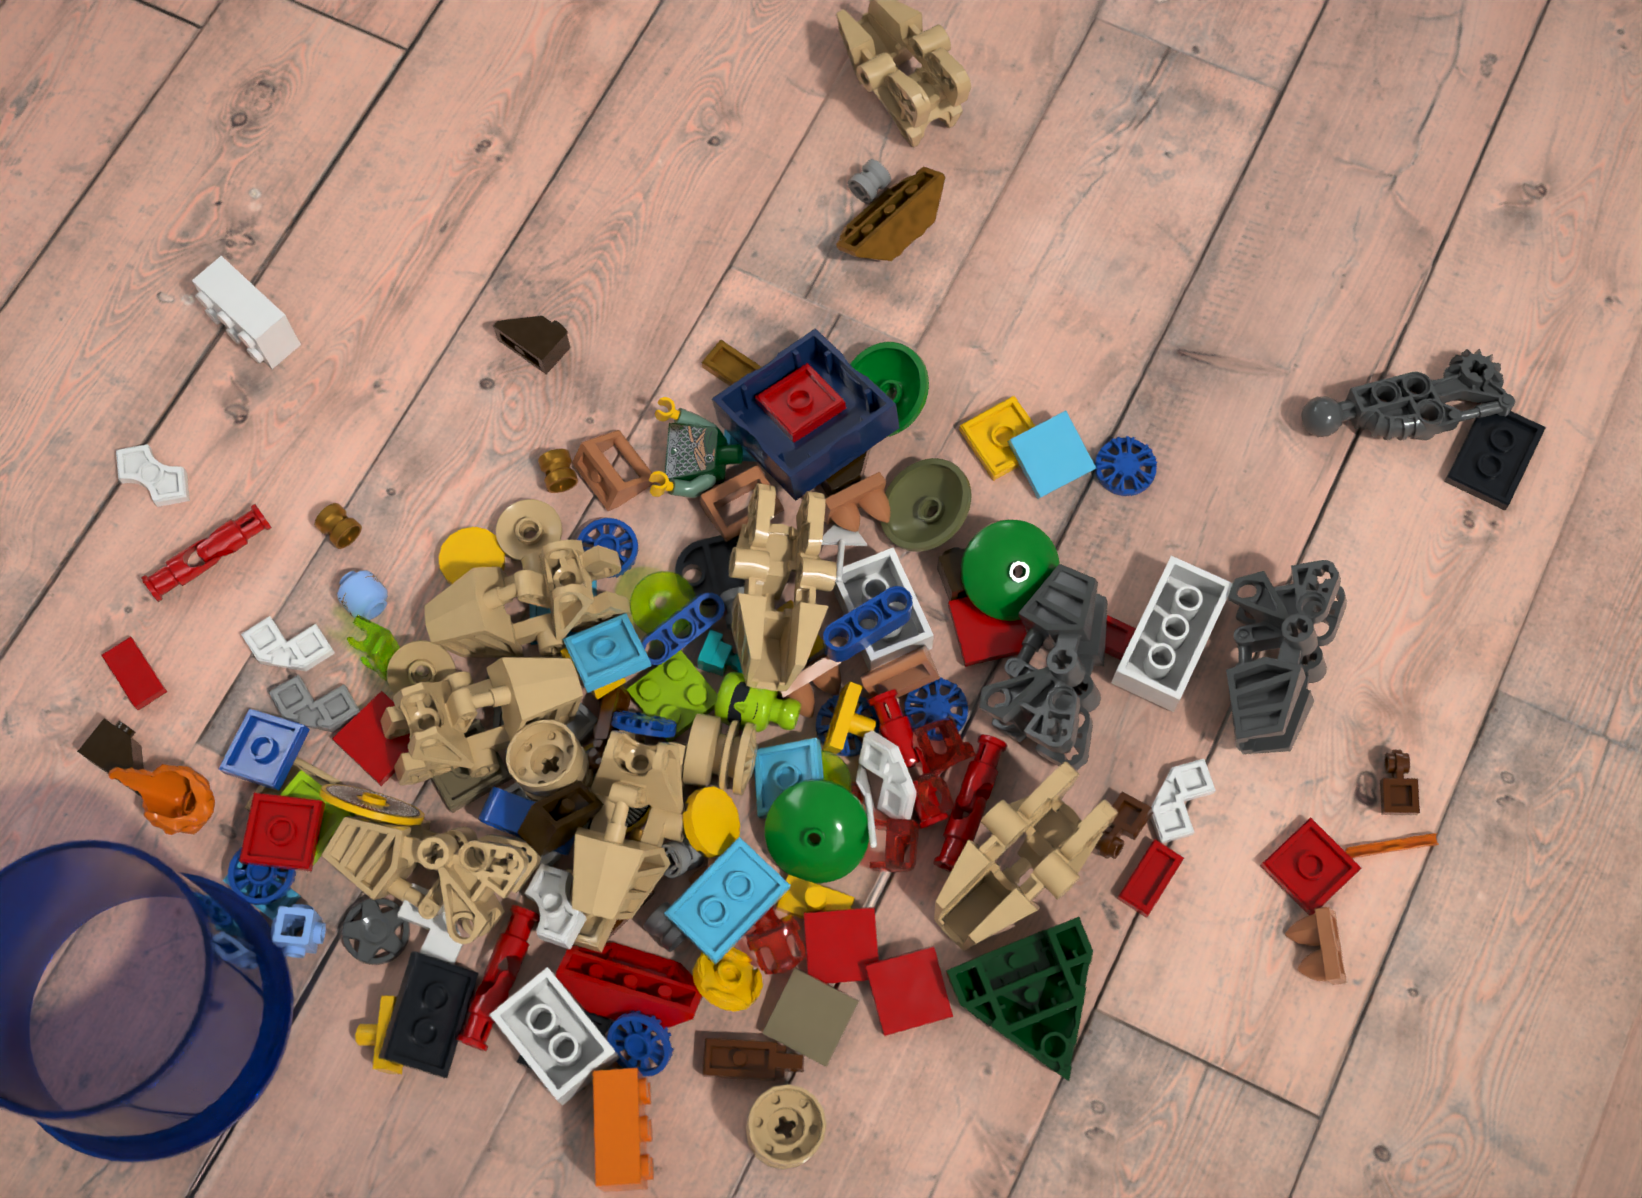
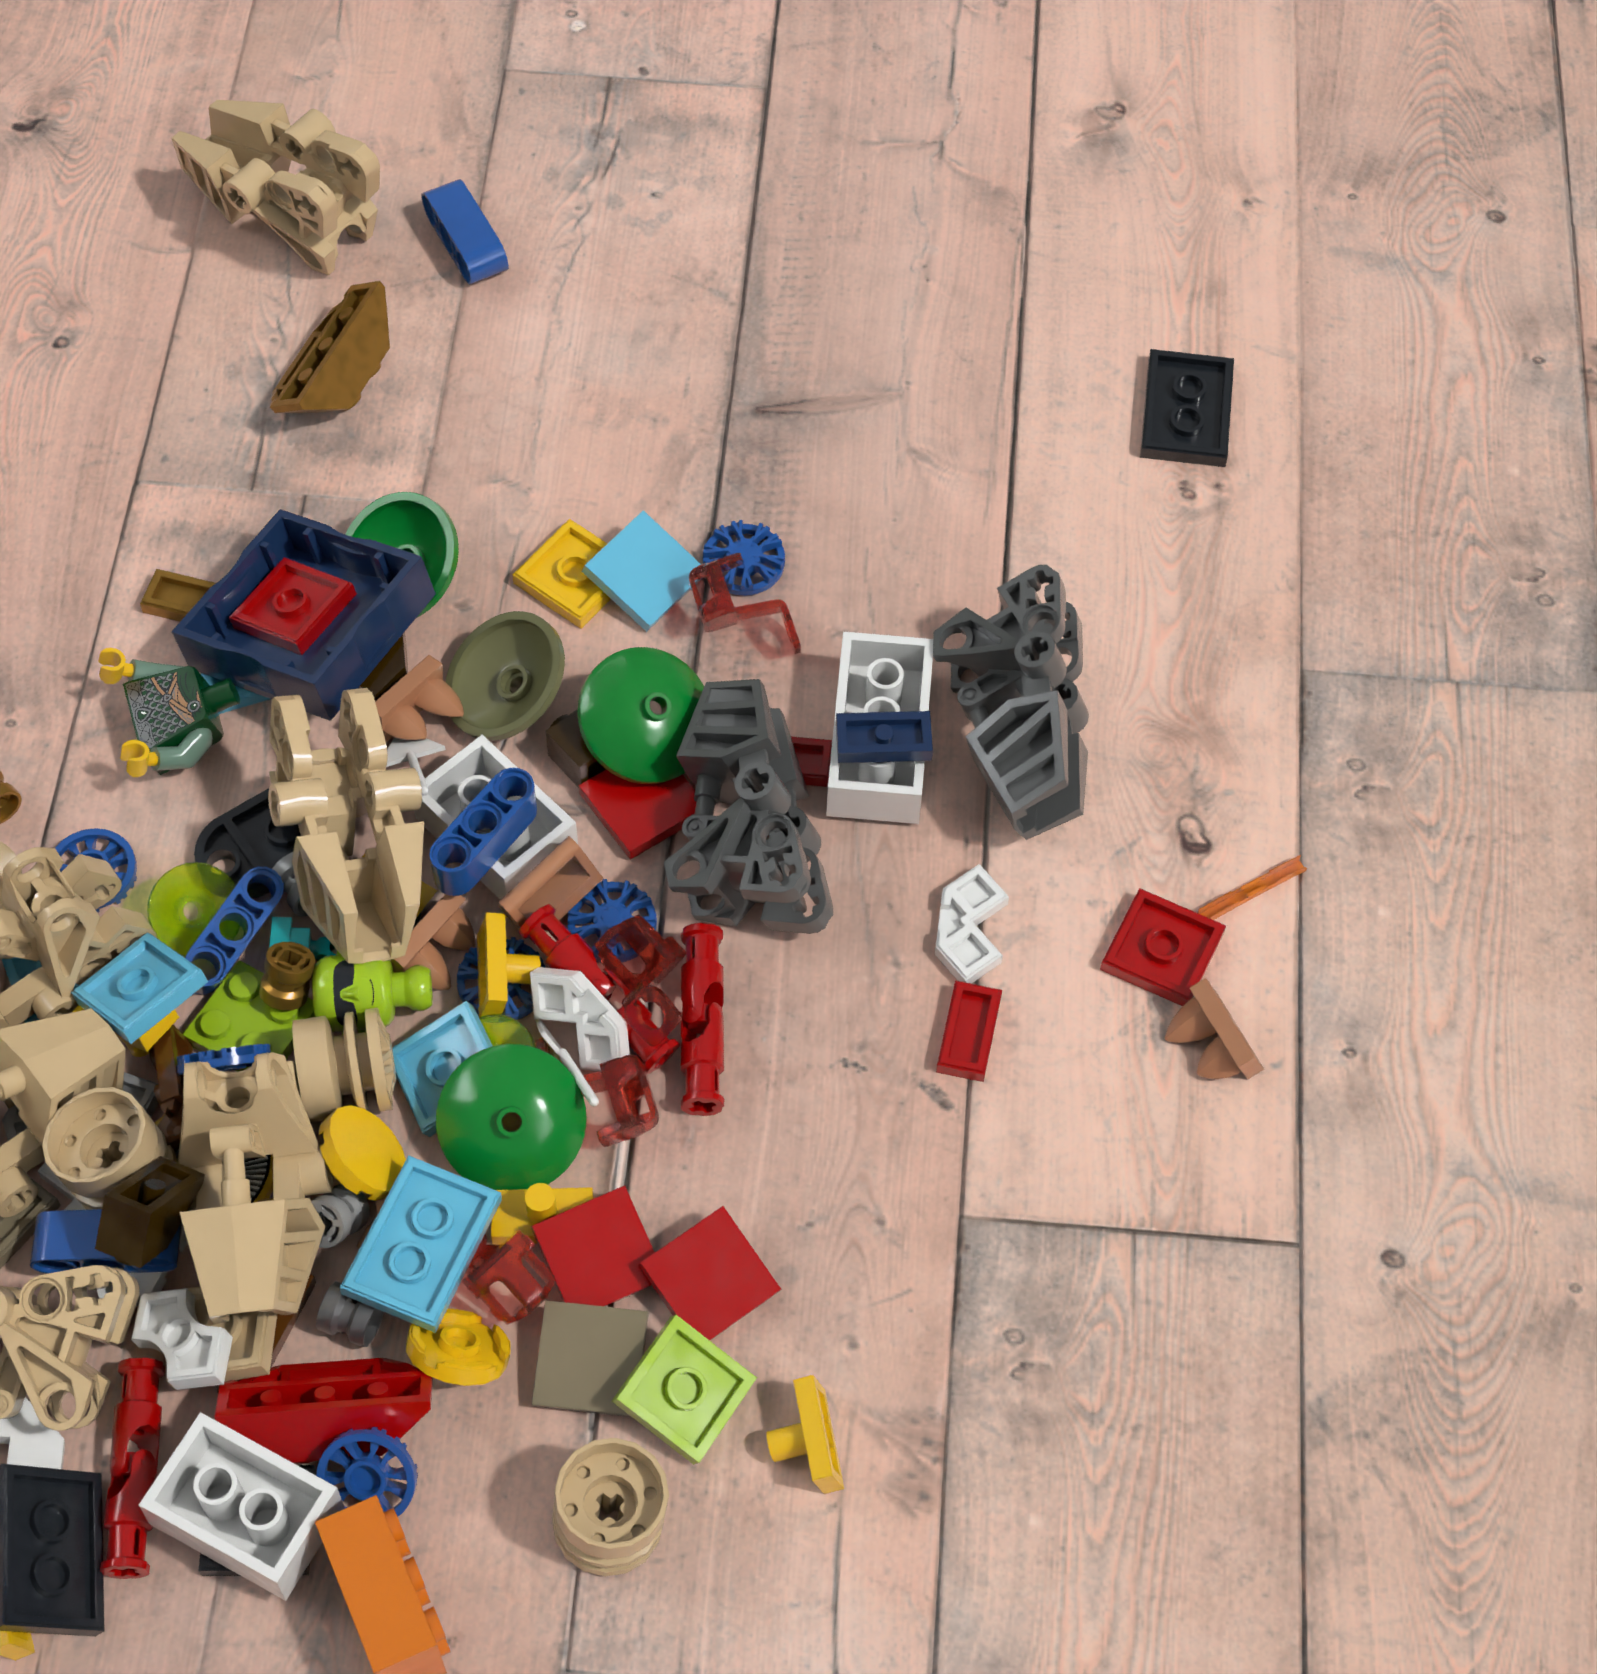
camera: 25 degrees left, 10 degrees down
(603, 477) = (55, 781): nougat tile -> none
(705, 676) = (287, 976): none -> pearl gold wheel
(729, 491) = (233, 748): nougat tile -> none
(748, 1060) = (526, 1445): reddish brown hinge -> none
(863, 1063) = (684, 1389): none -> lime plate
(869, 181) = (284, 329): light grey wheel -> none
(935, 1127) = (810, 1437): none -> yellow tile
(982, 897) = (766, 1125): tan piece -> none
(1019, 144) = (464, 231): none -> blue beam
(1031, 991) = (873, 1214): dark green wedge -> none
(1095, 502) = (720, 611): none -> clear red piece
(1129, 821) = (908, 966): reddish brown plate -> none
(1168, 649) = (884, 737): none -> dark blue plate
(1399, 794) = (1233, 823): reddish brown plate -> none
(1467, 378) = (1066, 376): dark grey arm -> none

